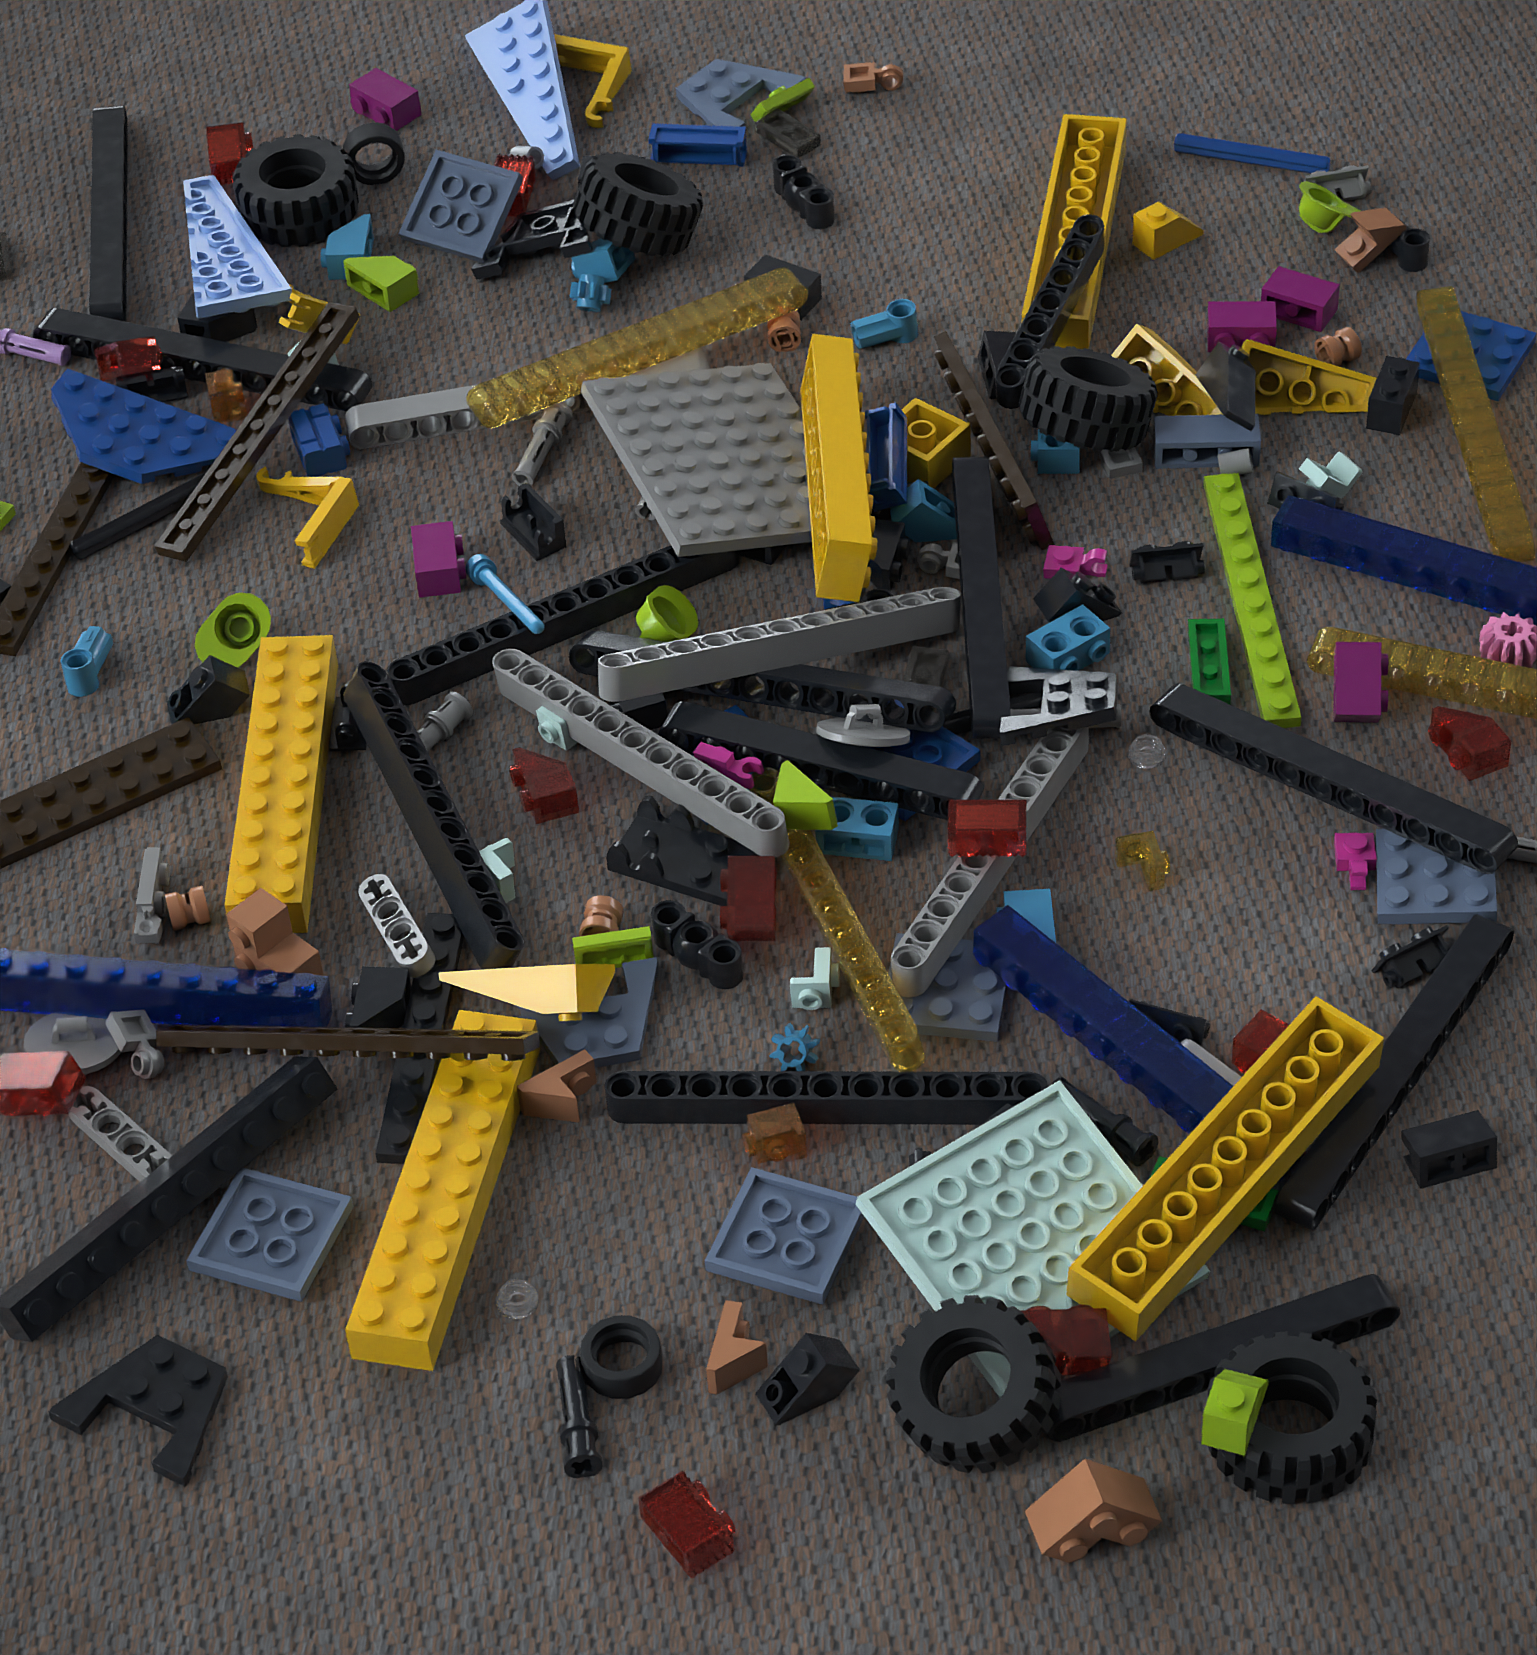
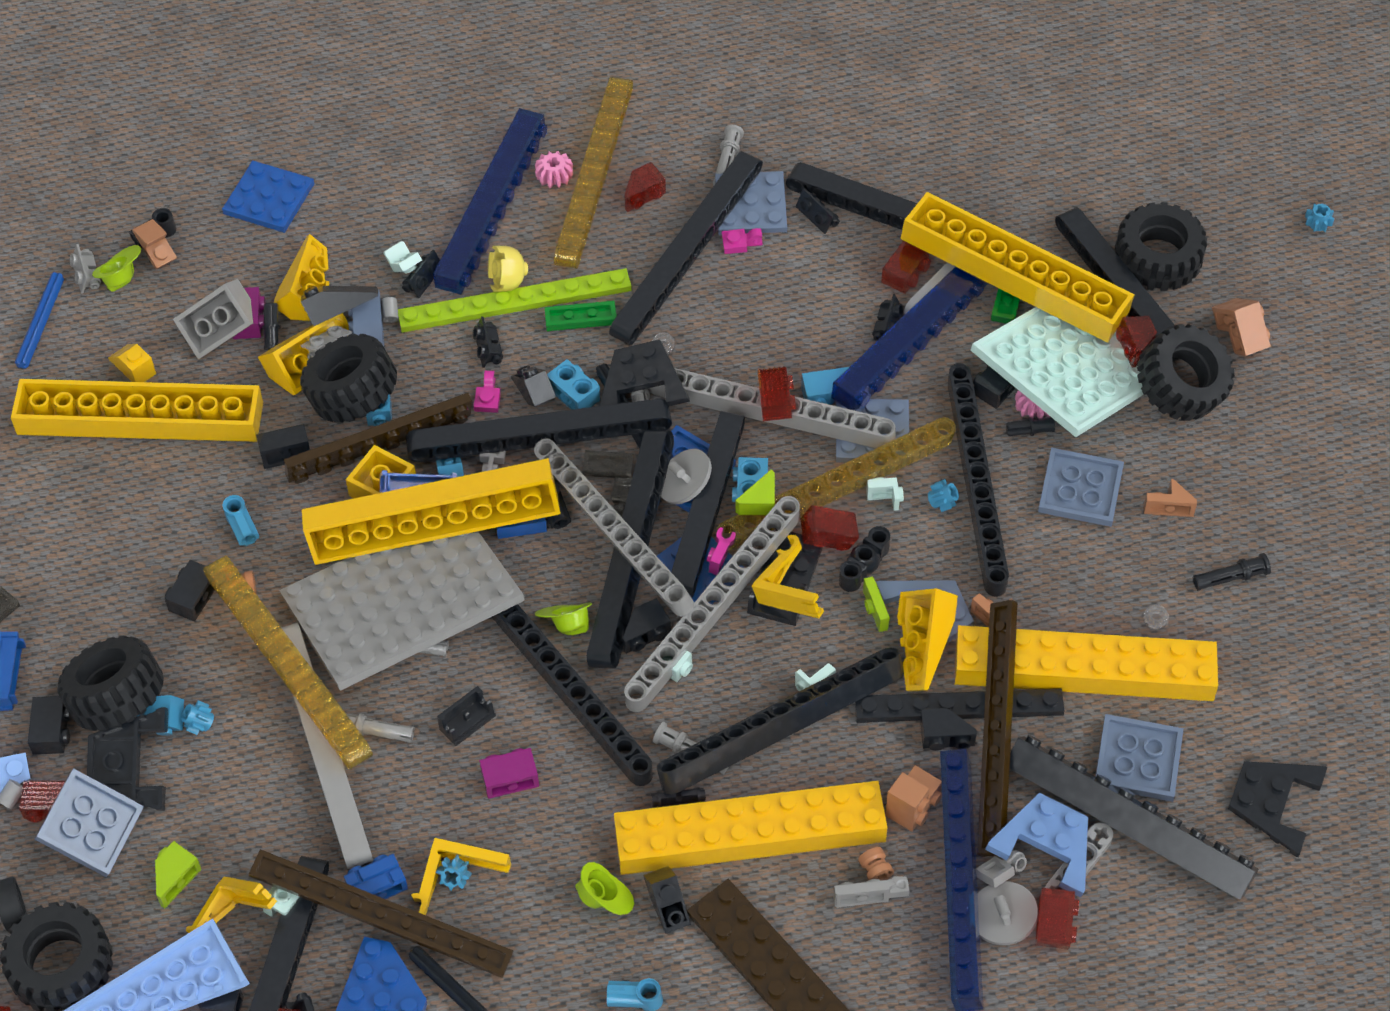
camera: 100 degrees left, 10 degrees up
(167, 1098) = (1053, 830): none -> medium blue wing
(225, 396) = (322, 956): clear orange brick -> none
(304, 502) = (449, 867): none -> dark azure gear
(347, 242) = (131, 904): dark azure slope -> none
(396, 924) = (877, 734): light grey beam -> none
(483, 572) = (521, 739): dark azure piece -> none
(545, 785) = (734, 665): clear red slope -> none
(601, 915) = (853, 614): nougat wheel -> none
(621, 1383) = (1189, 540): black tyre -> none
(648, 810) = (771, 593): none -> yellow hinge
(687, 1523) = (1290, 508): clear red brick -> none
(775, 1134) = (1010, 498): clear orange brick -> none
(803, 192) = (64, 598): black piece -> none
(807, 1378) = (1182, 463): black slope -> none
(1051, 306) = (271, 400): black beam -> none
(1116, 1128) = (979, 330): black pin -> none
(1143, 850) = (759, 333): clear yellow bracket -> none
(1179, 398) = (319, 341): none -> light grey hinge
(1204, 346) = (270, 325): none -> black axle
(1218, 280) = (216, 318): none -> light grey slope
(1232, 1411) = (1186, 249): lime slope -> none
(1294, 570) = (506, 268): none -> light yellow cylinder
(1301, 298) = (214, 275): magenta brick -> none
(1341, 347) = (269, 260): nougat wheel -> none
(1358, 682) = (606, 234): magenta brick -> none
(1393, 395) = (326, 227): black brick -> none
(1450, 1149) = (958, 189): black hinge -> none
(1475, 425) = (353, 184): clear yellow beam -> none

